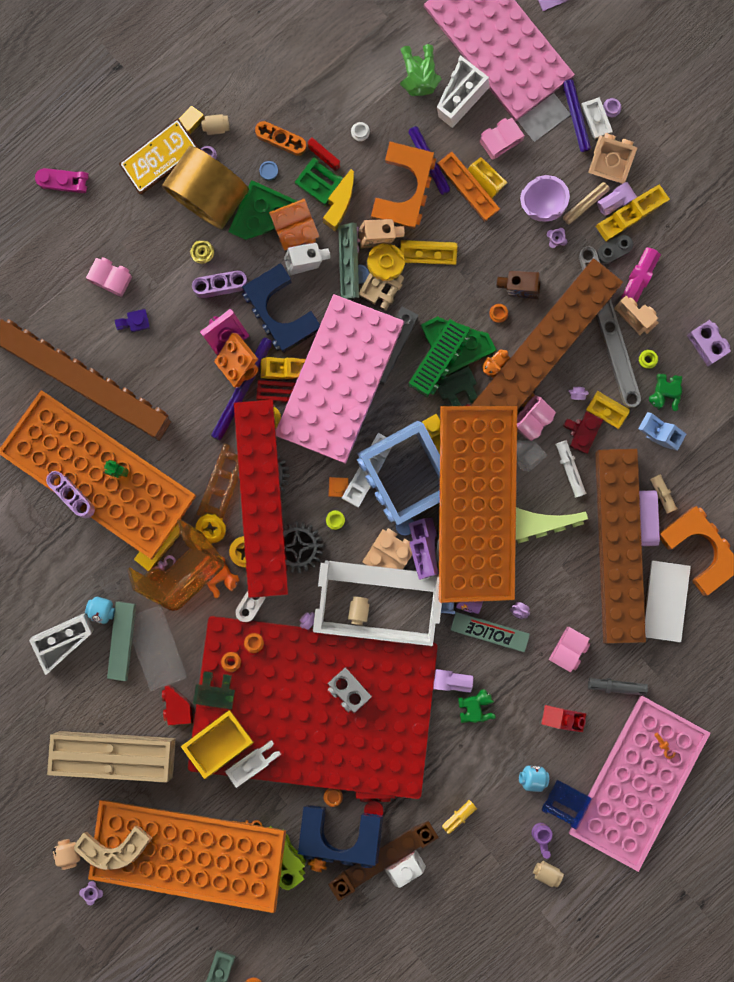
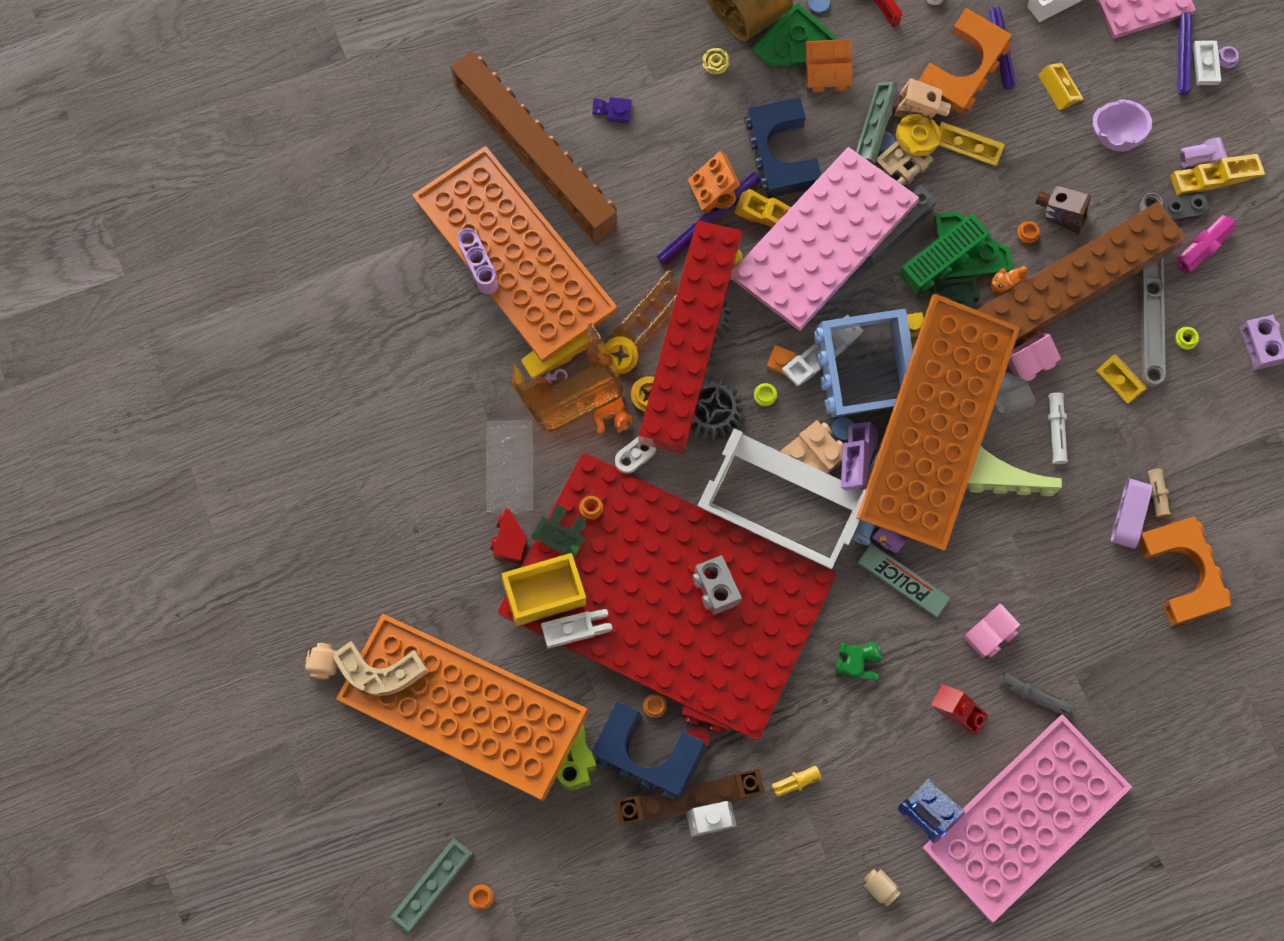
camera: 25 degrees right, 10 degrees down
(59, 641) = (405, 419): white wedge -> none
(85, 893) = (326, 715): lavender plate -> none
(100, 610) = (462, 401): medium azure head -> none
(109, 277) = (604, 54): bright pink brick -> none
(111, 756) = (416, 563): tan brick -> none
(115, 470) = (538, 249): green plate -> none
(121, 641) = (474, 444): sand green tile -> none
(211, 280) = (715, 92): lavender beam -> none
(221, 329) = (707, 143): dark pink tile -> none
(253, 643) = (624, 496): orange plate -> none
(268, 390) = (749, 226): red tile -> none
(305, 258) = (828, 101): white torso -> none
(307, 620) = (694, 494): lavender plate -> none
(315, 185) = (866, 33): green plate -> none
(317, 864) = (609, 777): orange plate -> none
(339, 201) = (887, 57): yellow slope -> none
(358, 611) = (758, 503): tan brick -> none
(450, 681) = (836, 618): lavender piece -> none
(468, 186) = (1037, 88): orange plate -> none
(501, 138) = (1092, 49): bright pink brick -> none
(520, 610) = (947, 567): lavender plate -> none
(534, 778) = (901, 766): medium azure head -> none
(542, 834) = (888, 837): medium lavender piece -> none
(544, 117) = (1146, 45): flat silver sticker -> none
(557, 232) = (1123, 168): lavender plate -> none
(578, 393) = (1093, 347): lavender plate -> none
(583, 431) = (1085, 392): dark red hinge -> none
(587, 202) = (1166, 148): tan axle -> none
(612, 158) = (1212, 108): light nougat plate -> none
(620, 546) = (1089, 534): dark orange brick -> none
(639, 319) = (1189, 285): light nougat plate -> none
(662, 433) = (1177, 423): light blue brick -> none
(664, 745) = (1071, 780): orange hand -> none
(665, 389) = (1201, 378): green animal -> none
(666, 601) = (1124, 617): white tile -> none

